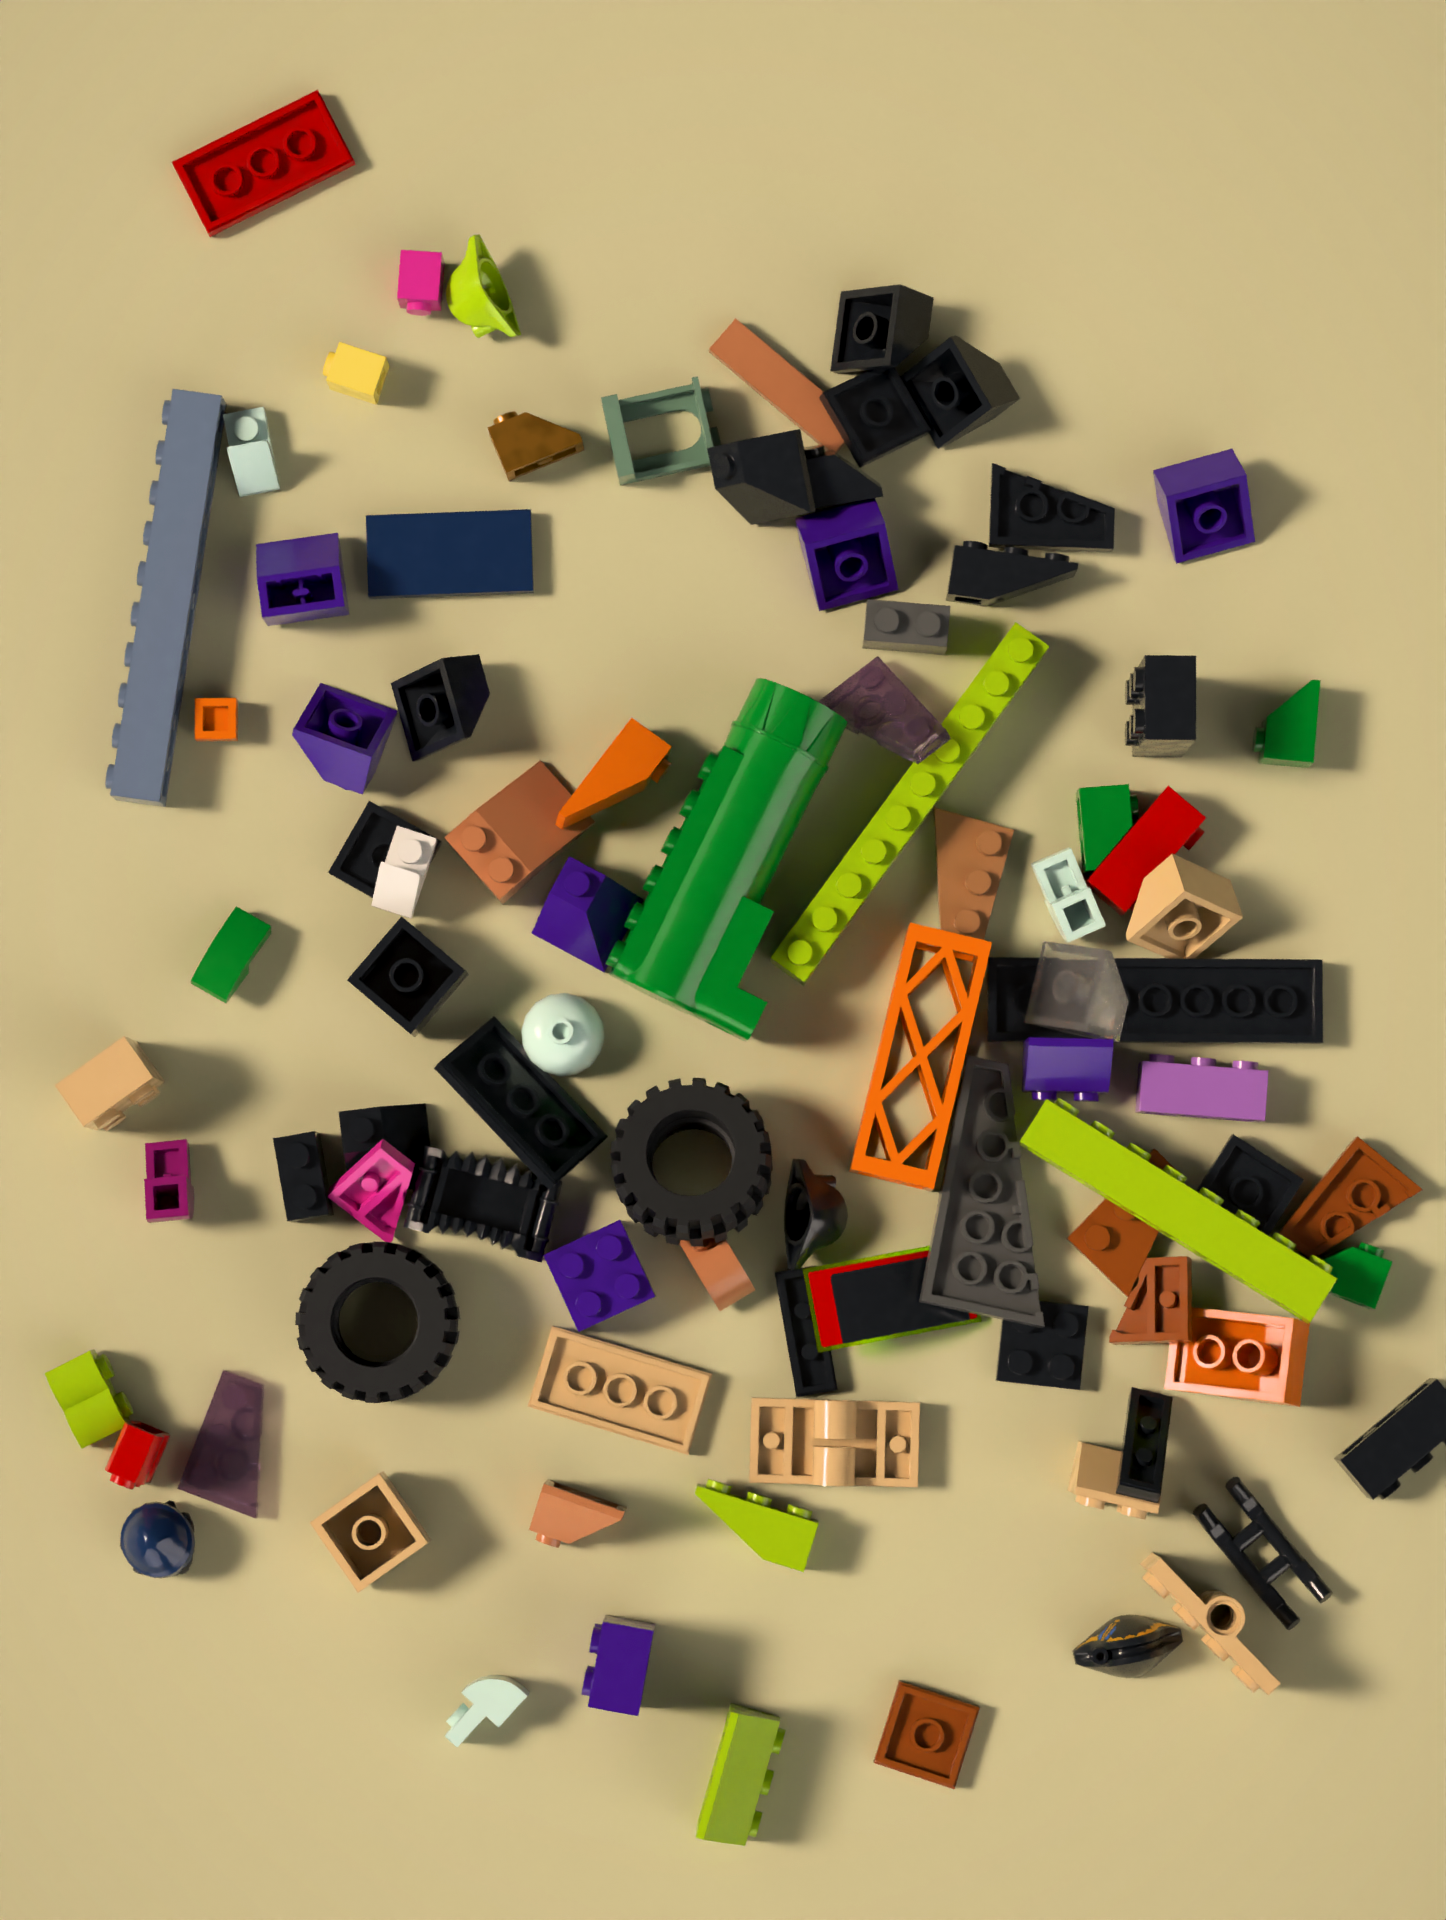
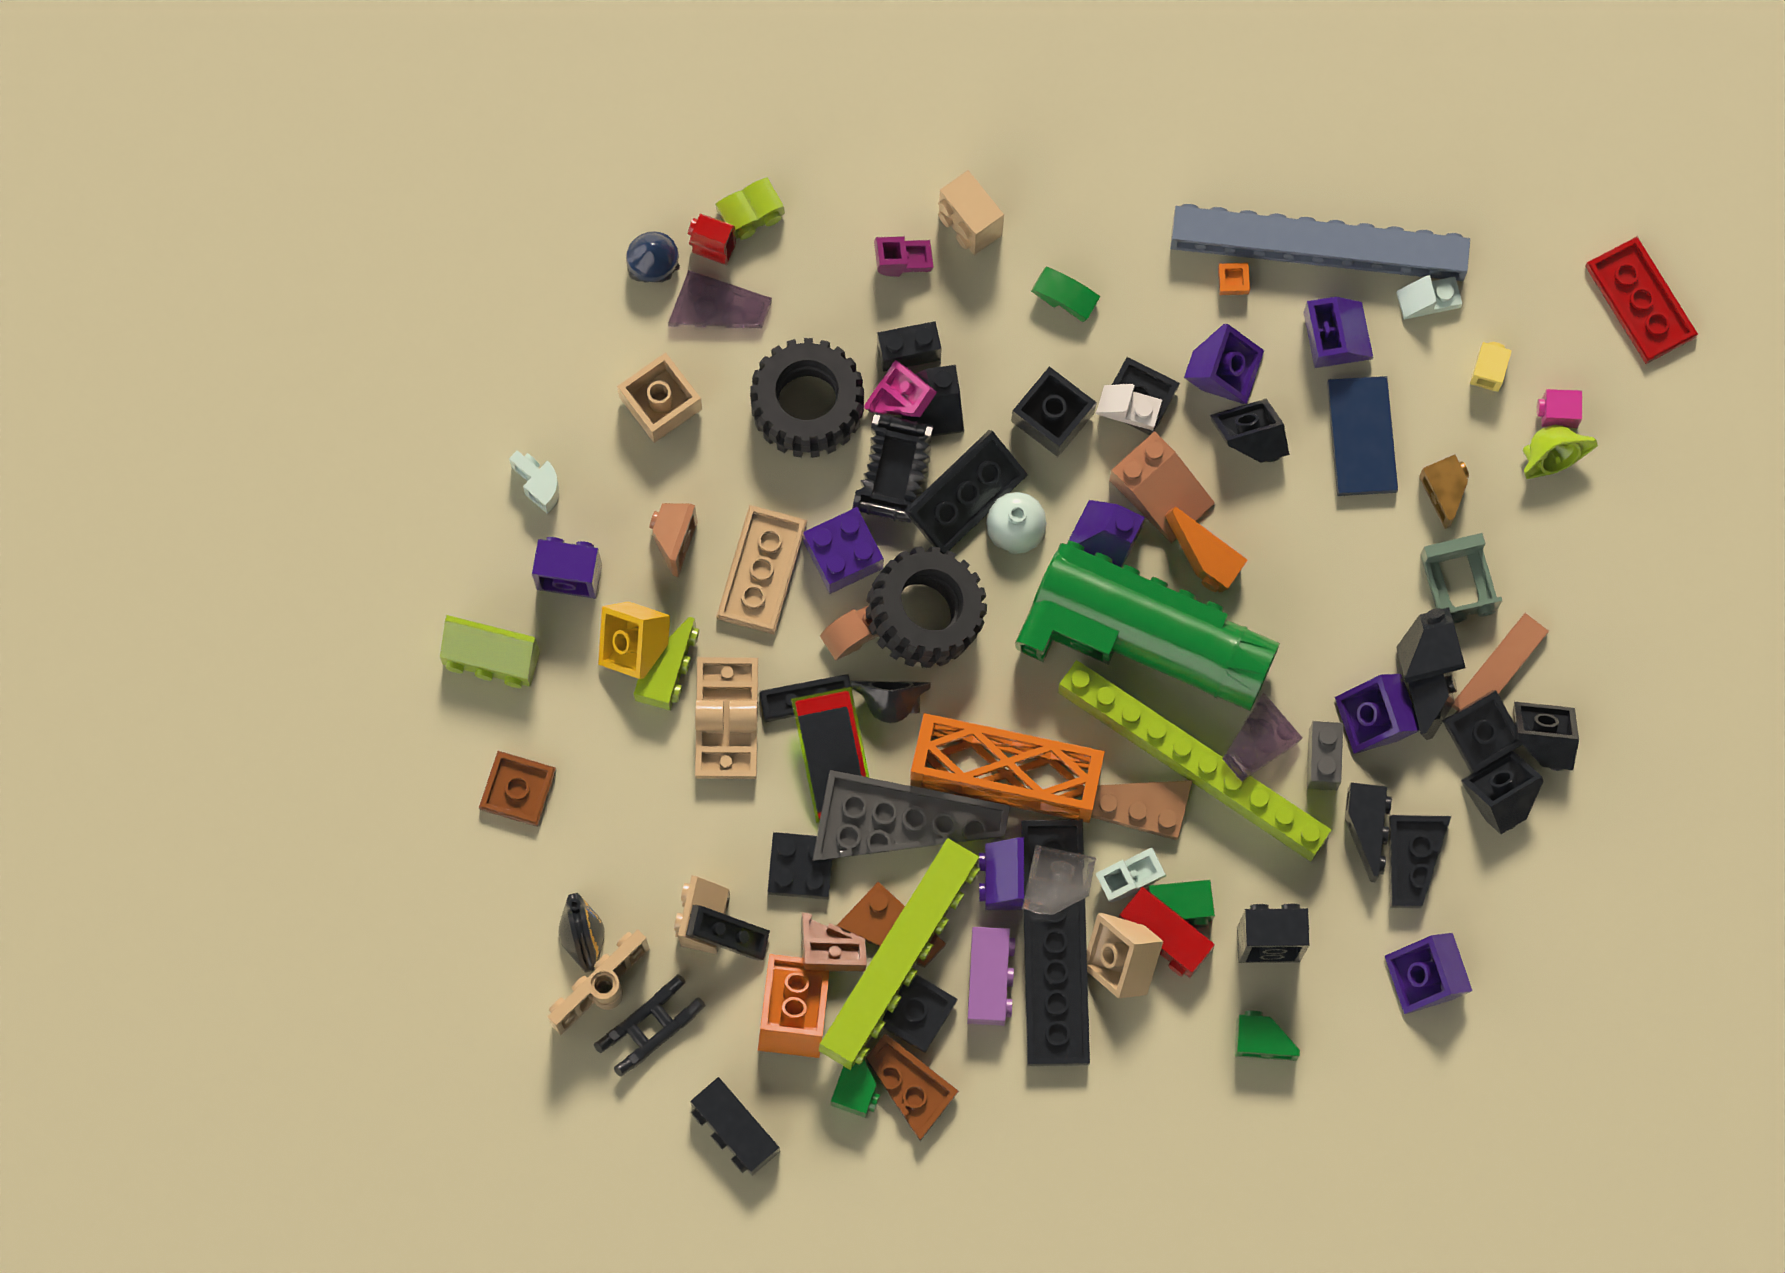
camera: 85 degrees right, 10 degrees down
(724, 1573) = (632, 638): none -> yellow slope

